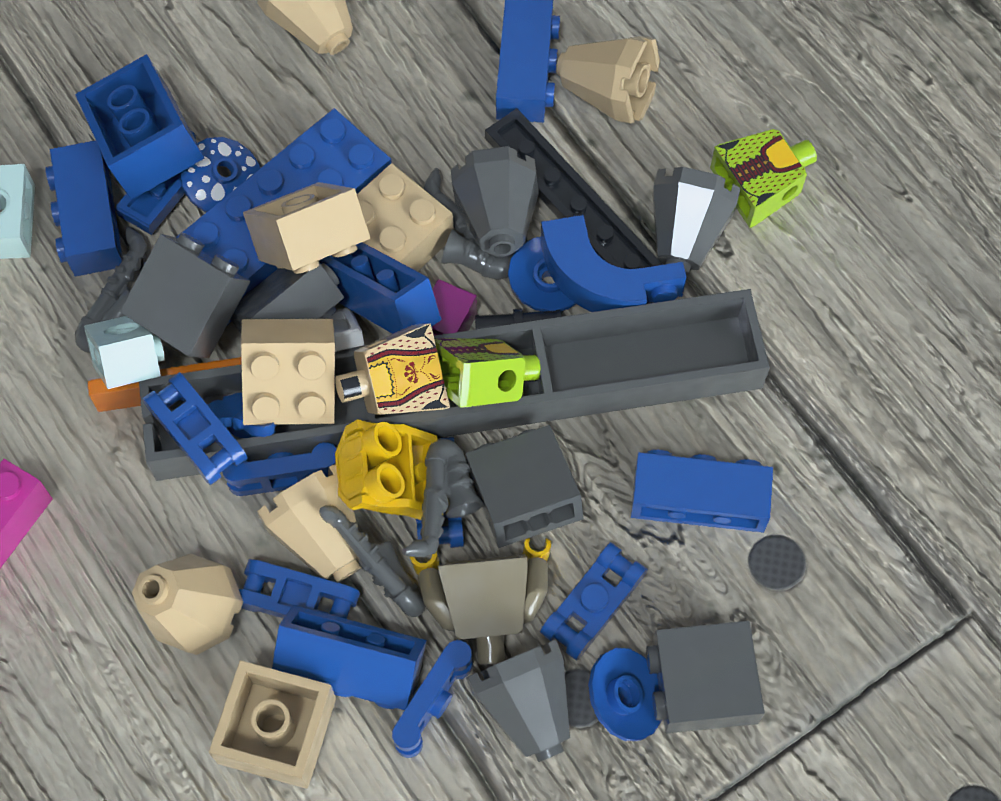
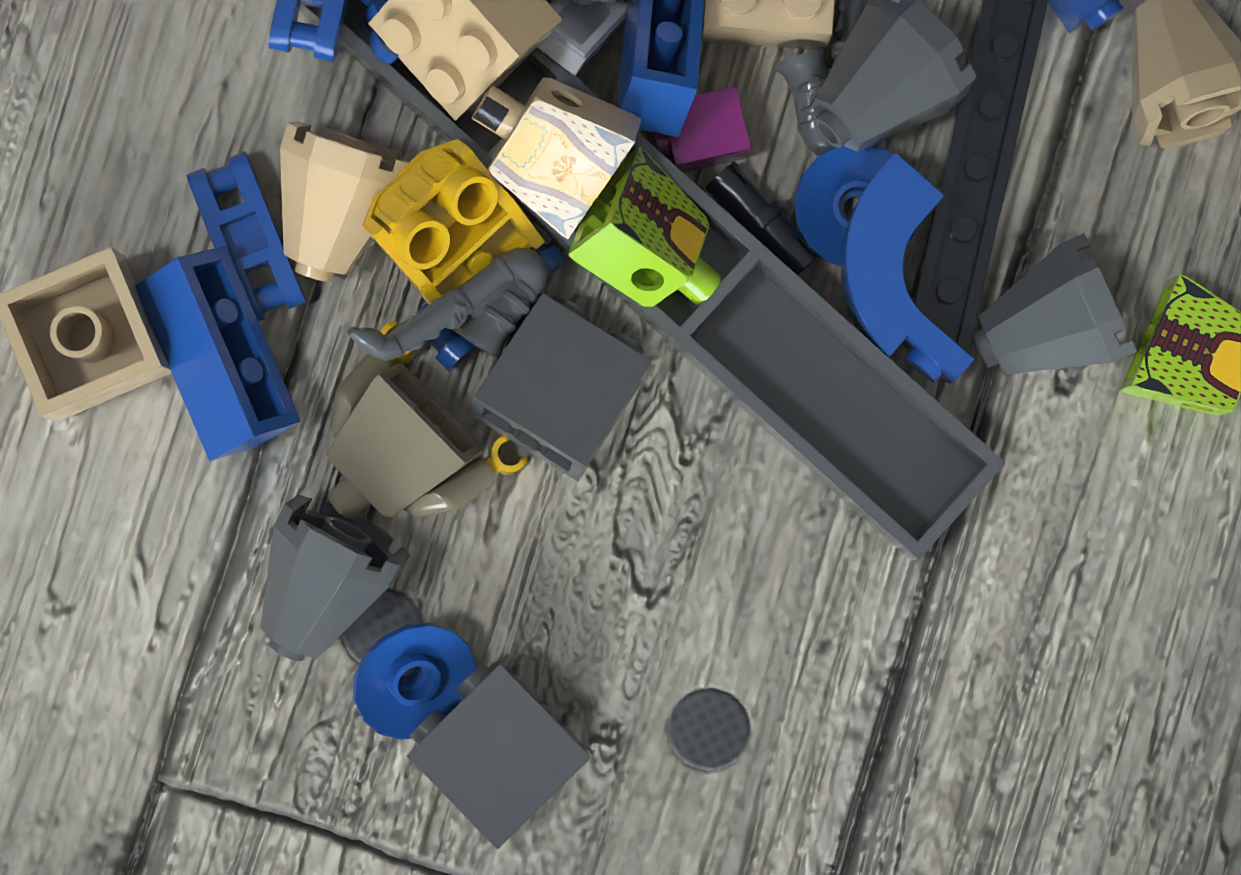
camera: 50 degrees right, 20 degrees up
(188, 602) = (140, 129): tan cone -> none
(278, 471) = (375, 104): blue plate -> none
(379, 562) = (344, 299): dark grey piece -> none
(431, 697) = (246, 475): blue plate -> none
(593, 601) = (498, 563): blue plate -> none
(702, 491) = (720, 586): blue brick -> none

